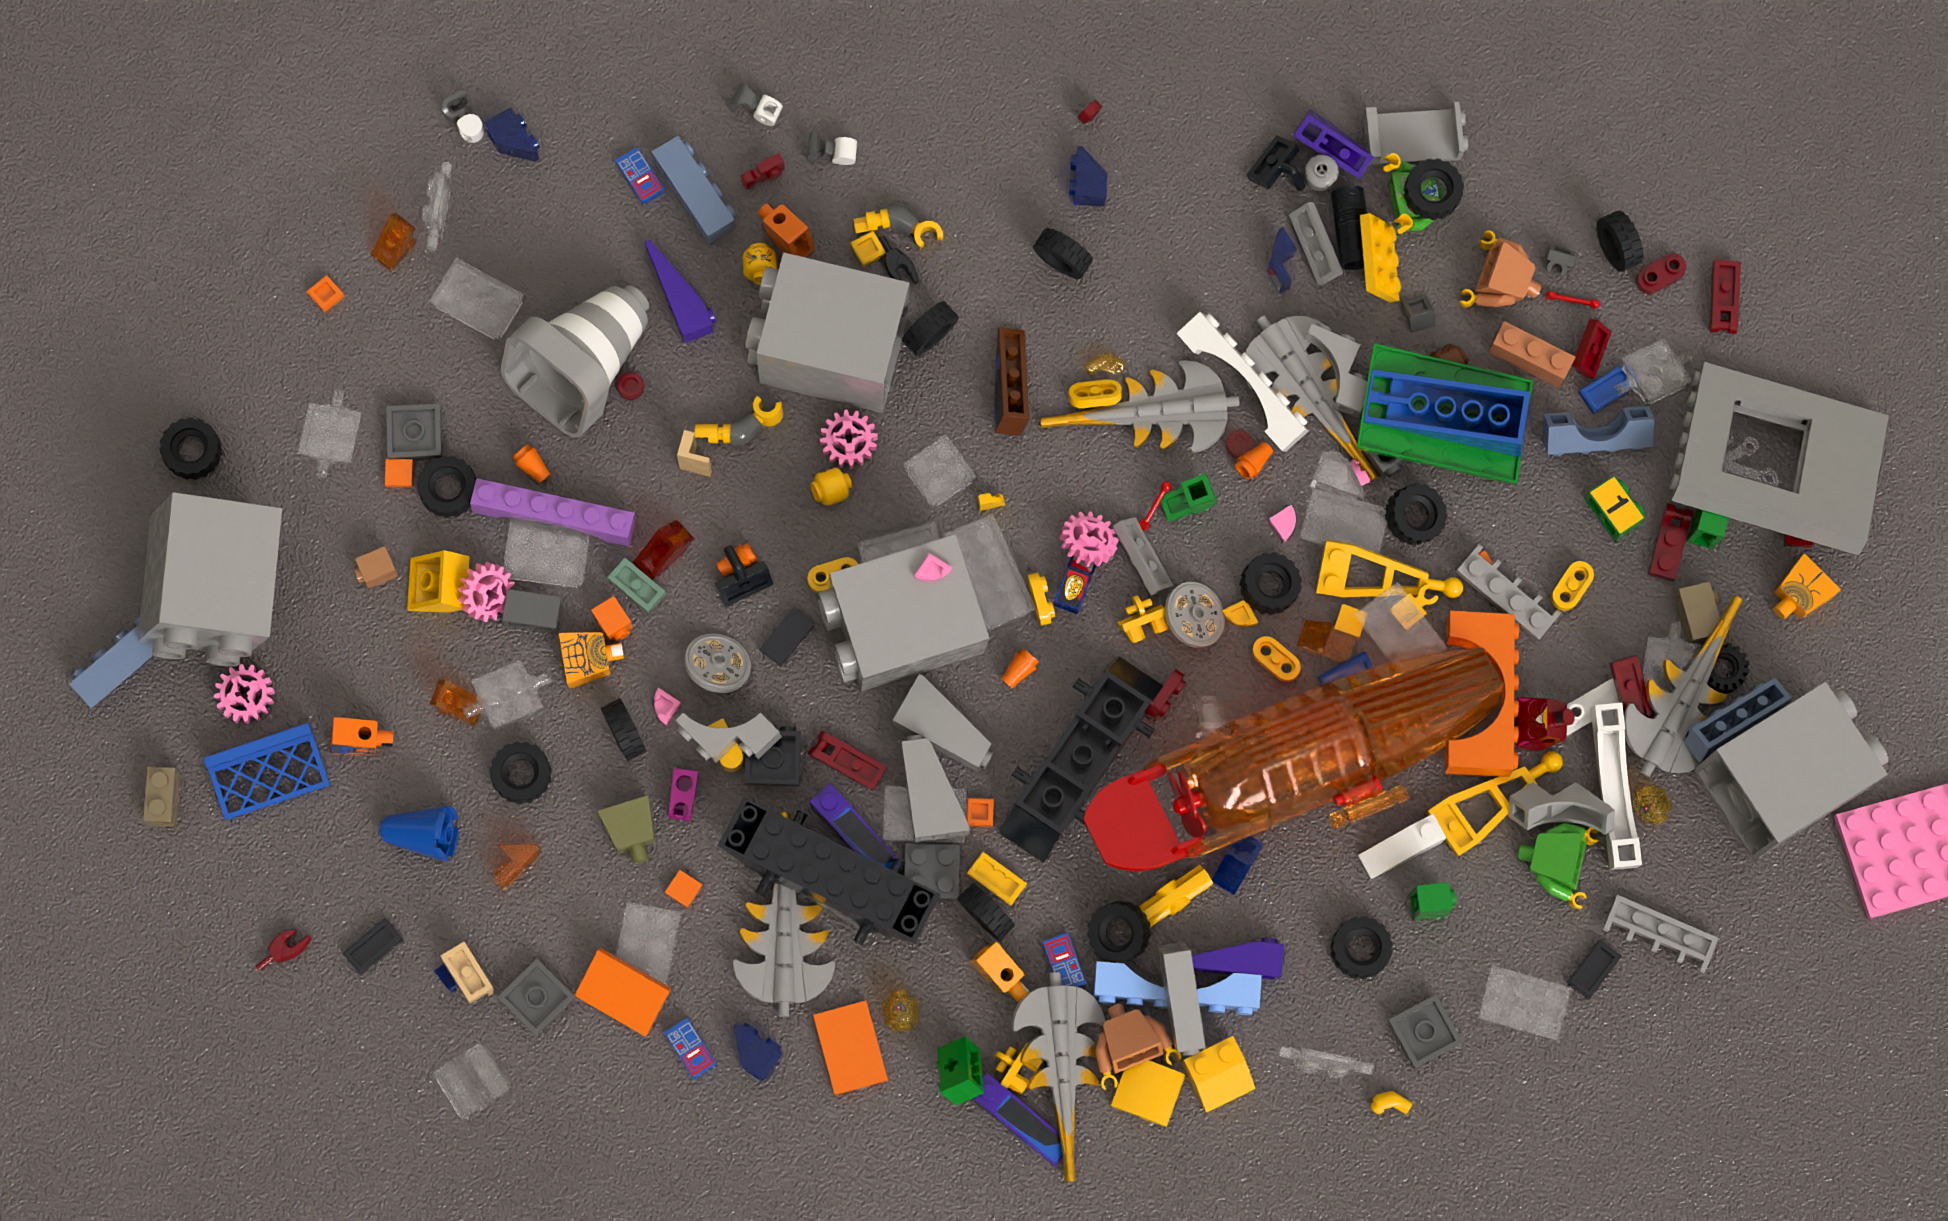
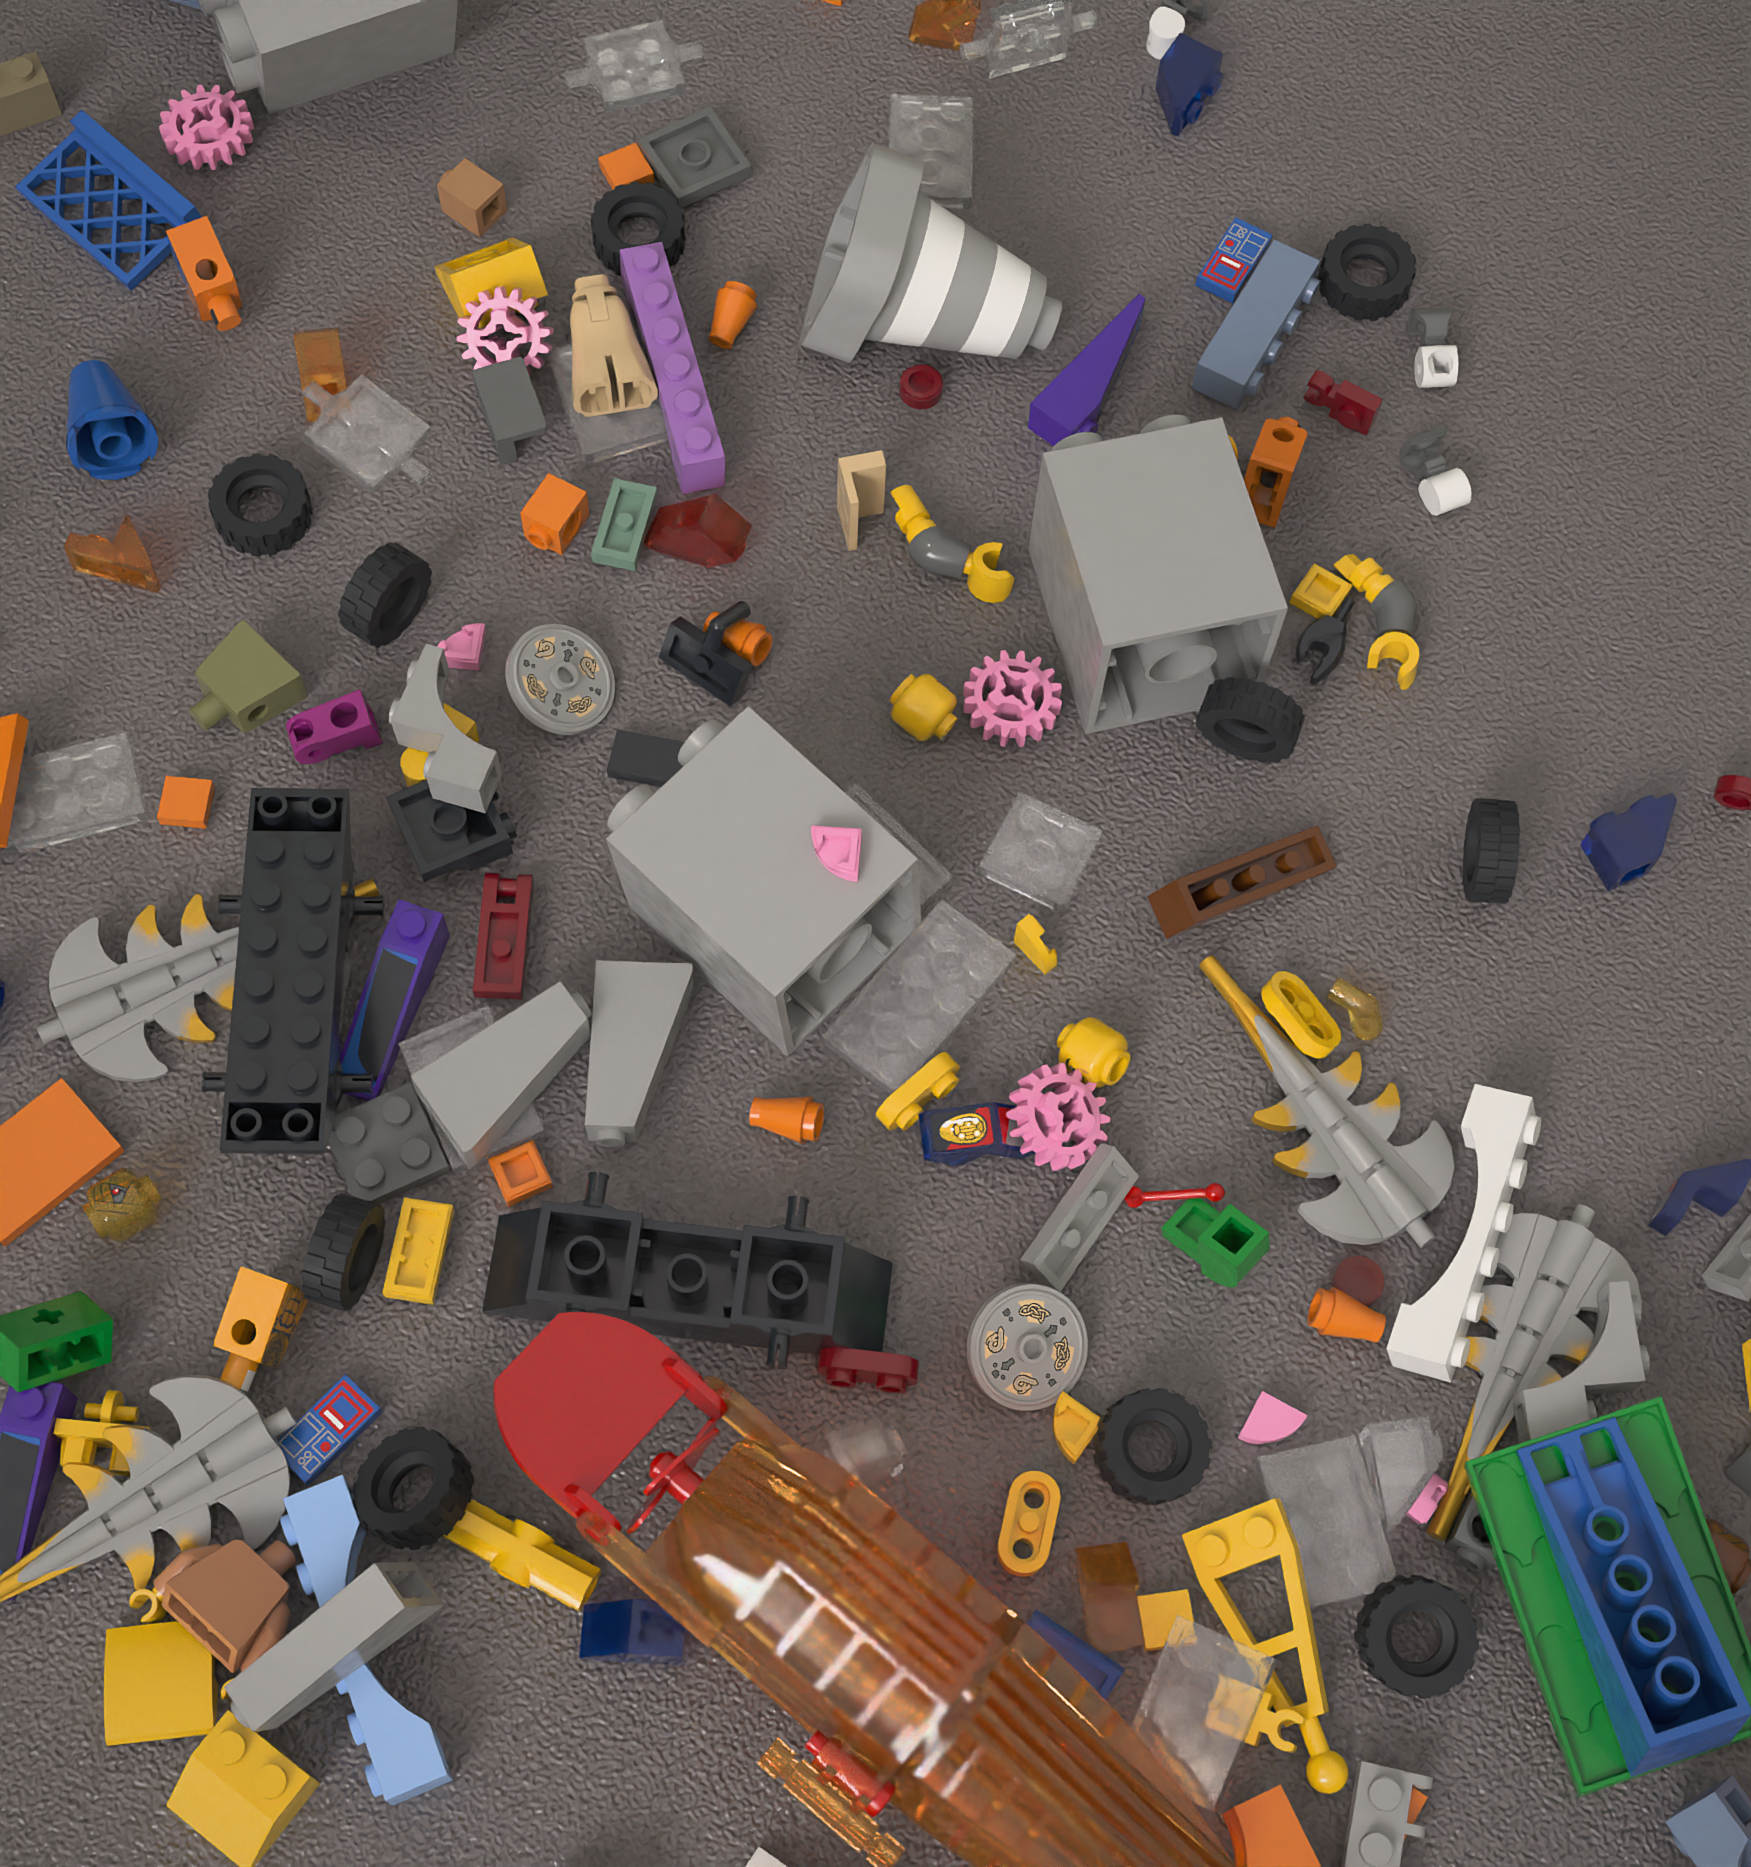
camera: 65 degrees right, 10 degrees down
(532, 543) = (606, 356): none -> tan piece
(587, 656) = (477, 507): torso -> none
(688, 91) = (1373, 244): none -> black tyre
(1062, 504) = (1095, 1050): none -> yellow head
(1132, 624) = (955, 1257): yellow hips -> none
(1254, 958) = (472, 1744): dark purple slope -> none

